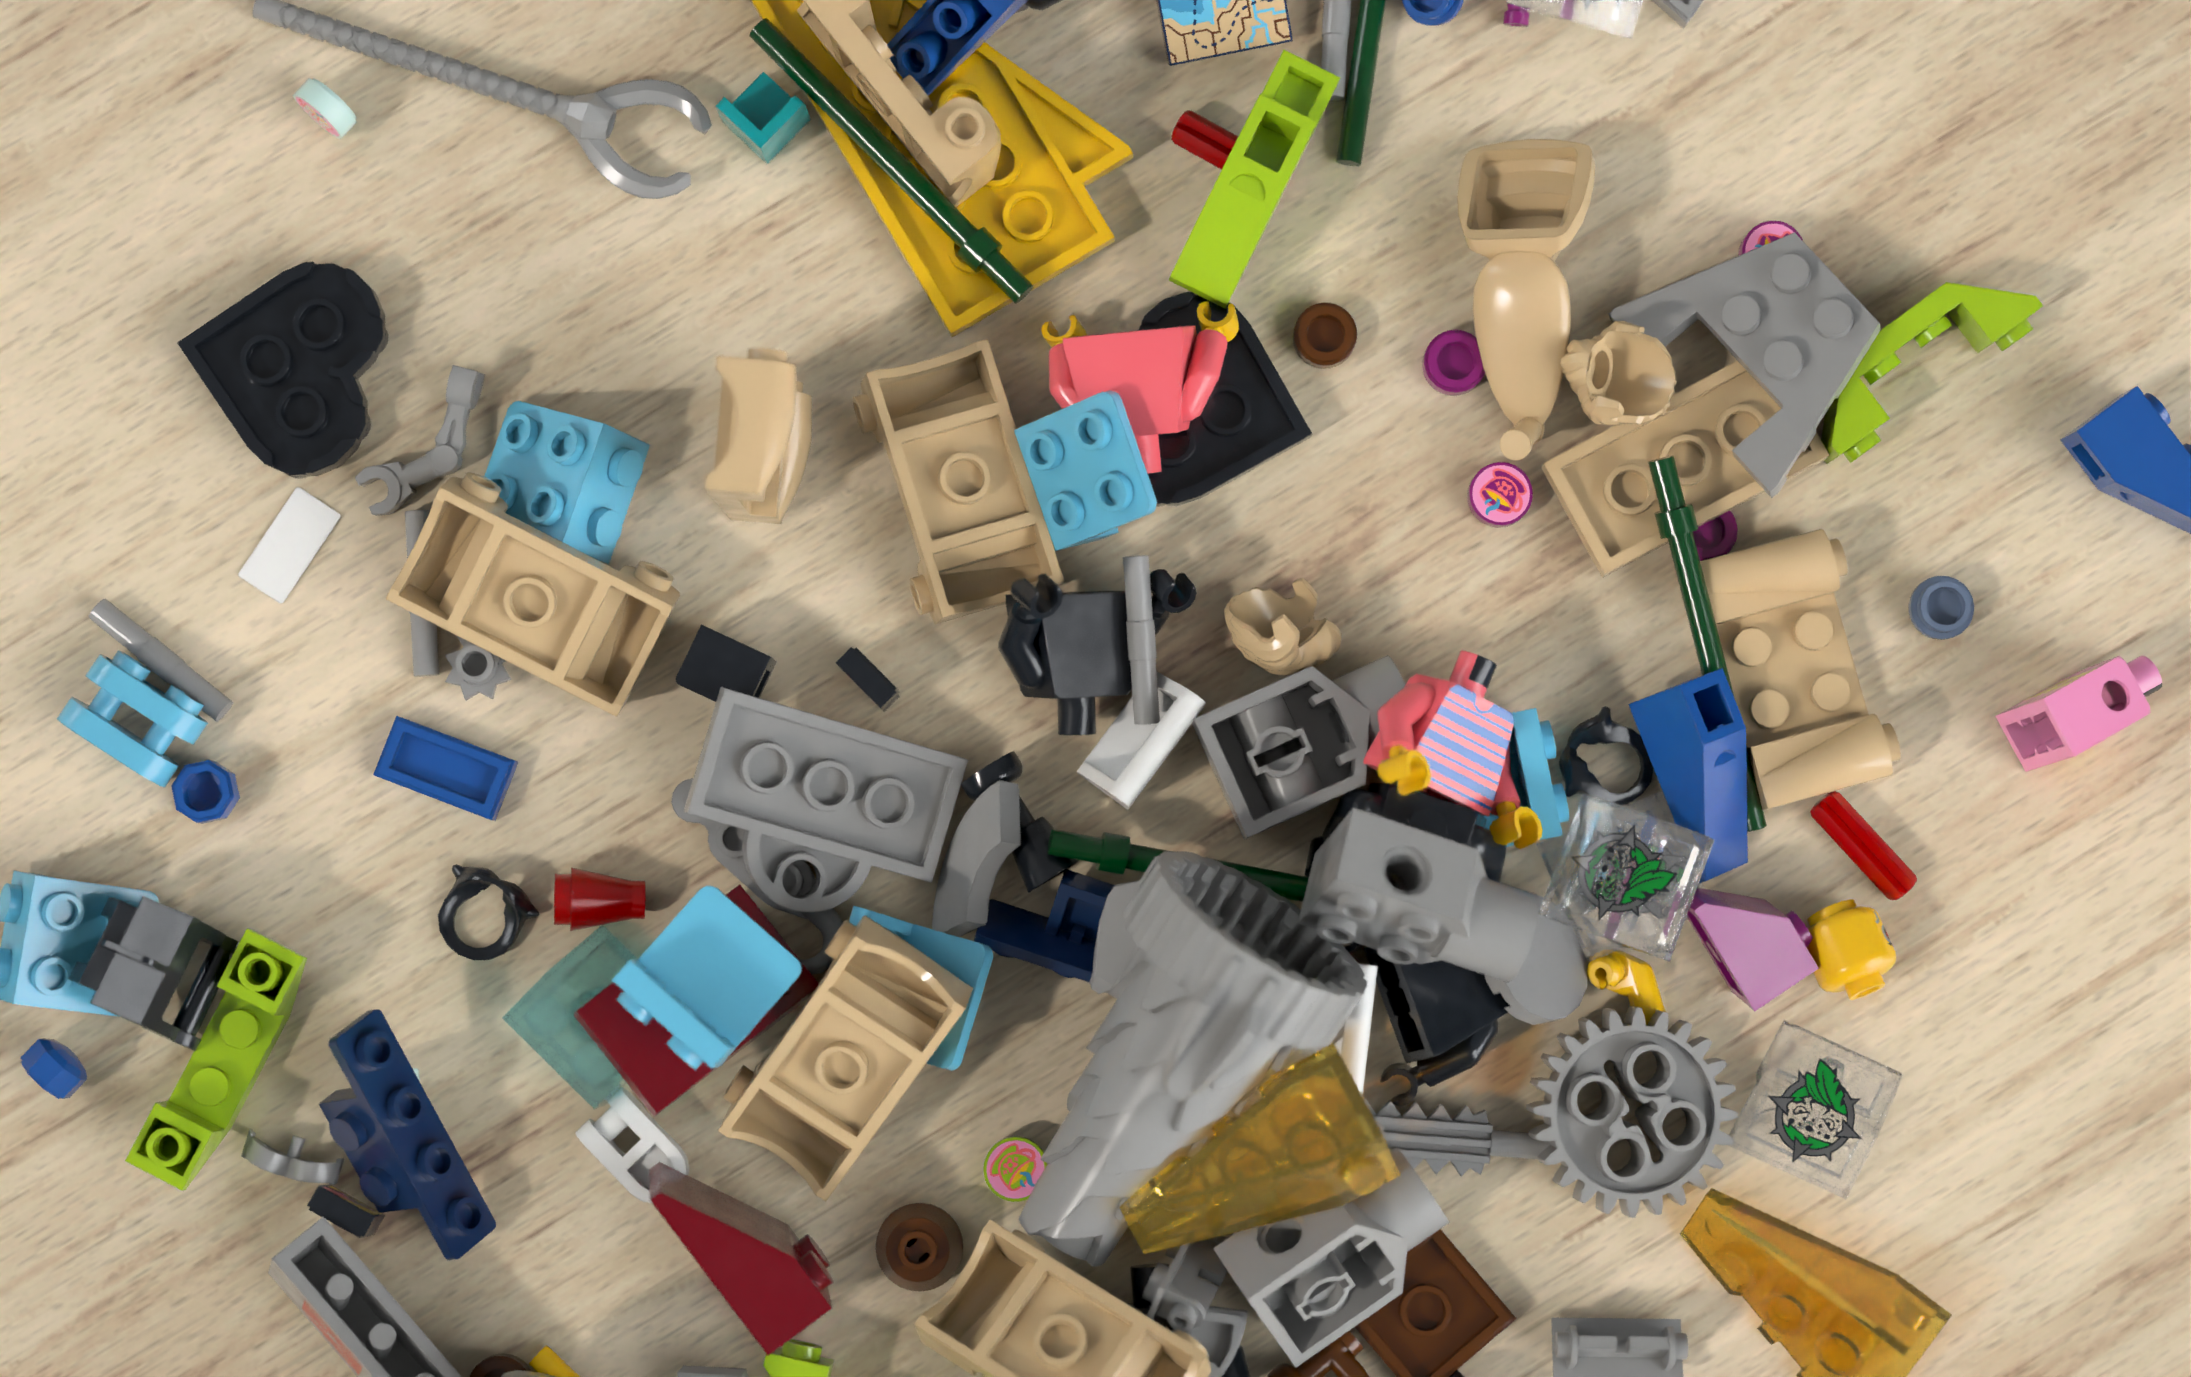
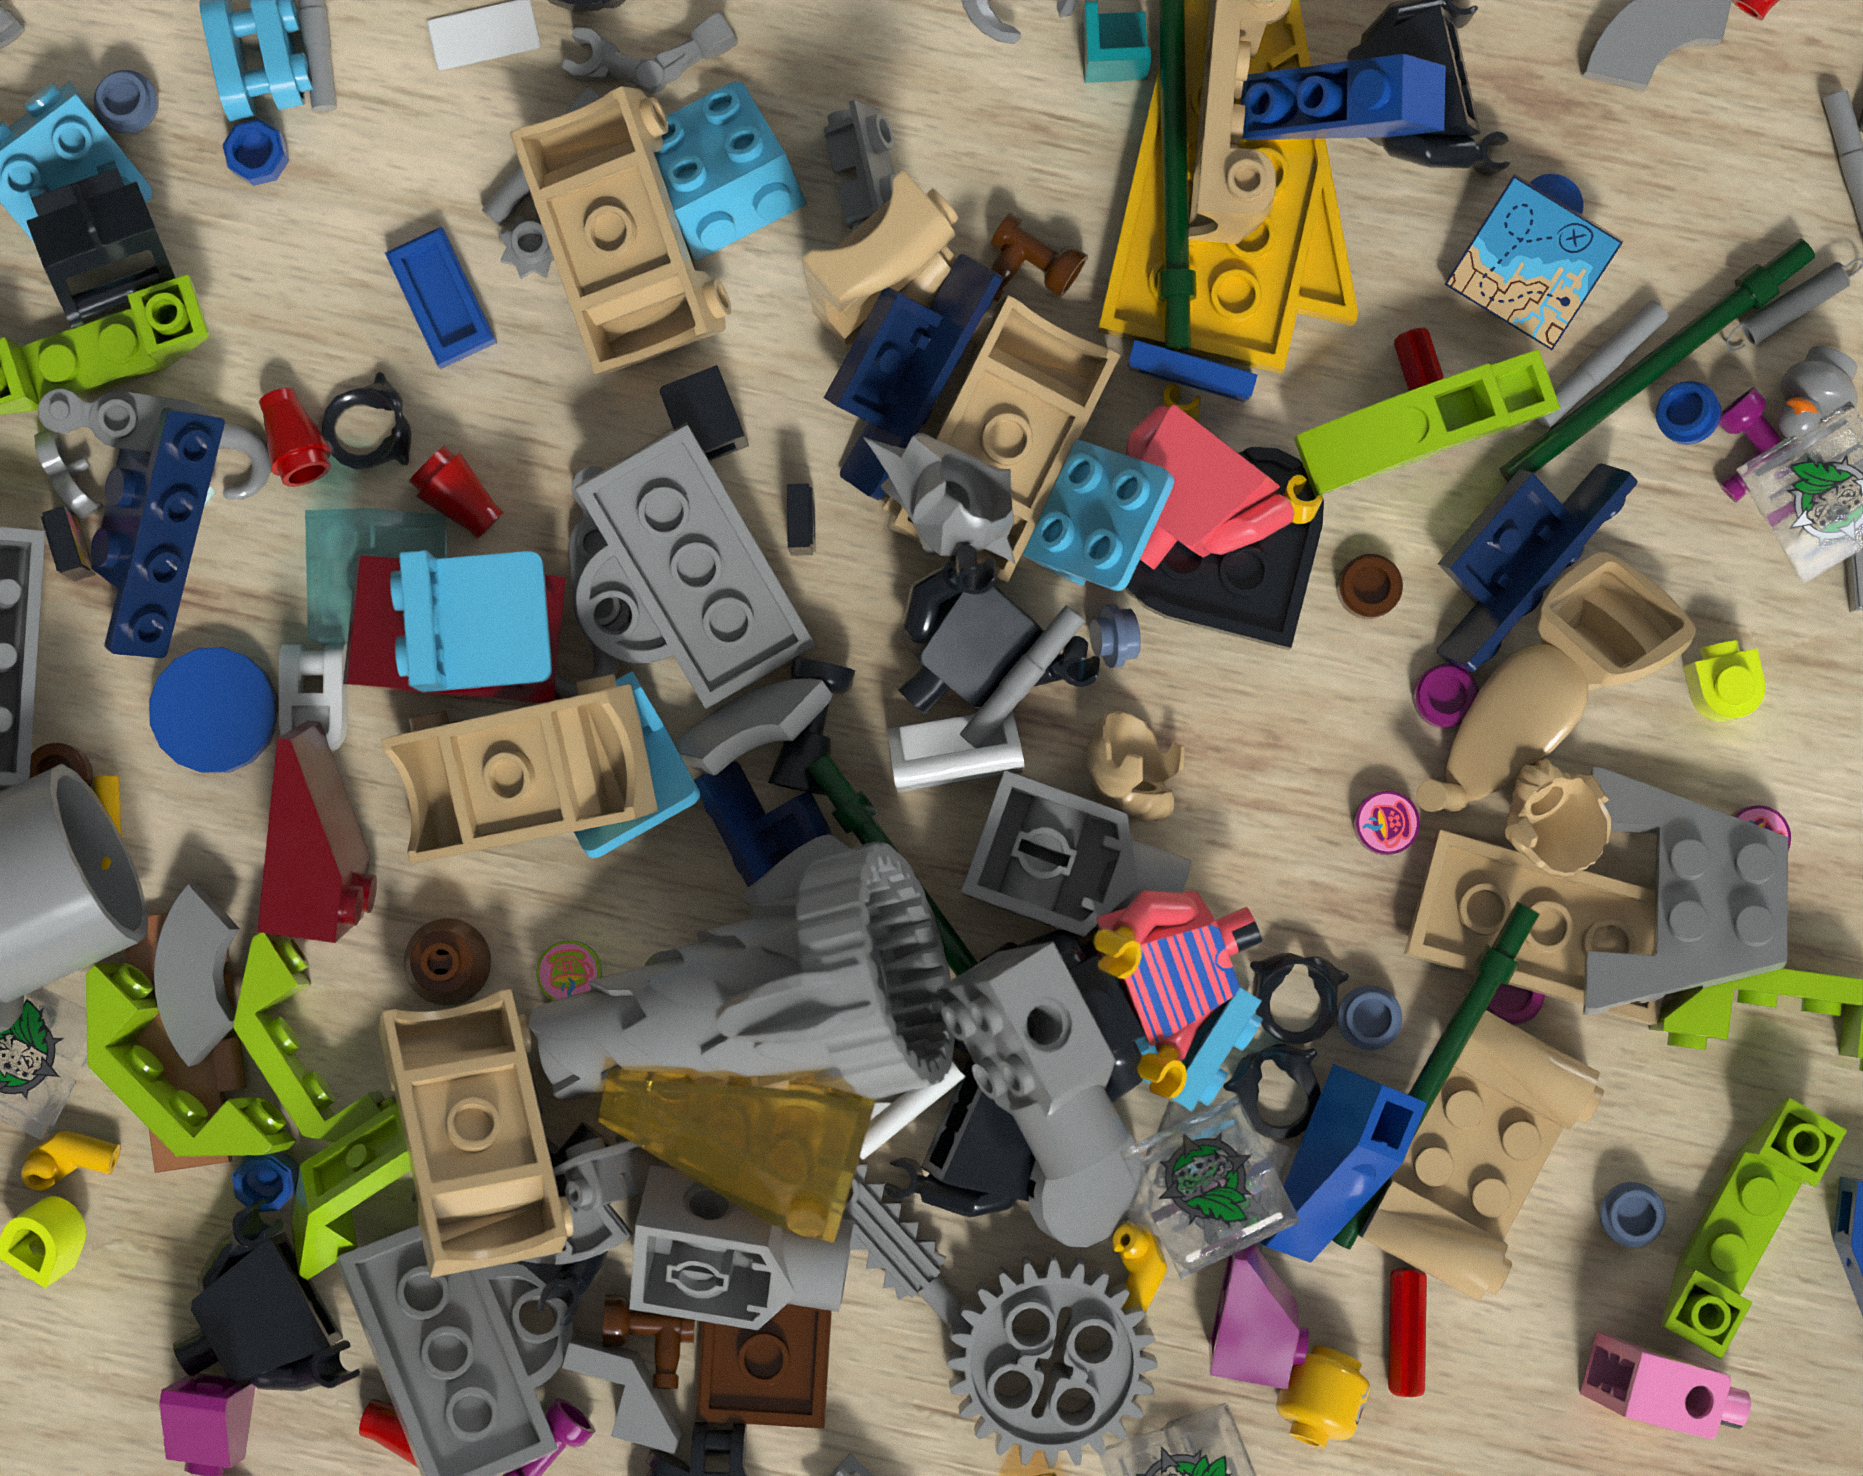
camera: 50 degrees right, 0 degrees up
(71, 846) = (126, 101): none -> sand blue plate
(313, 1073) = (131, 423): none -> light grey piece
(440, 976) = (293, 441): none -> red cone
(570, 1229) = (213, 710): none -> blue tile
(652, 362) = (861, 142): none -> light grey hinge
(835, 327) = (1019, 245): none -> reddish brown piece
(839, 498) = (905, 362): none -> dark blue bracket
(966, 559) = (949, 495): none -> light grey hair
(1048, 302) = (1191, 371): none -> blue tile
(1177, 545) = (1115, 635): none -> sand blue plate
(1409, 208) = (1519, 551): none -> dark blue bracket
(1564, 648) = (1326, 982): none -> black piece
(1621, 646) = (1369, 1017): none -> sand blue plate
(1644, 162) = (1726, 681): none -> neon yellow plate
(2022, 540) = (1741, 1220): none -> lime slope

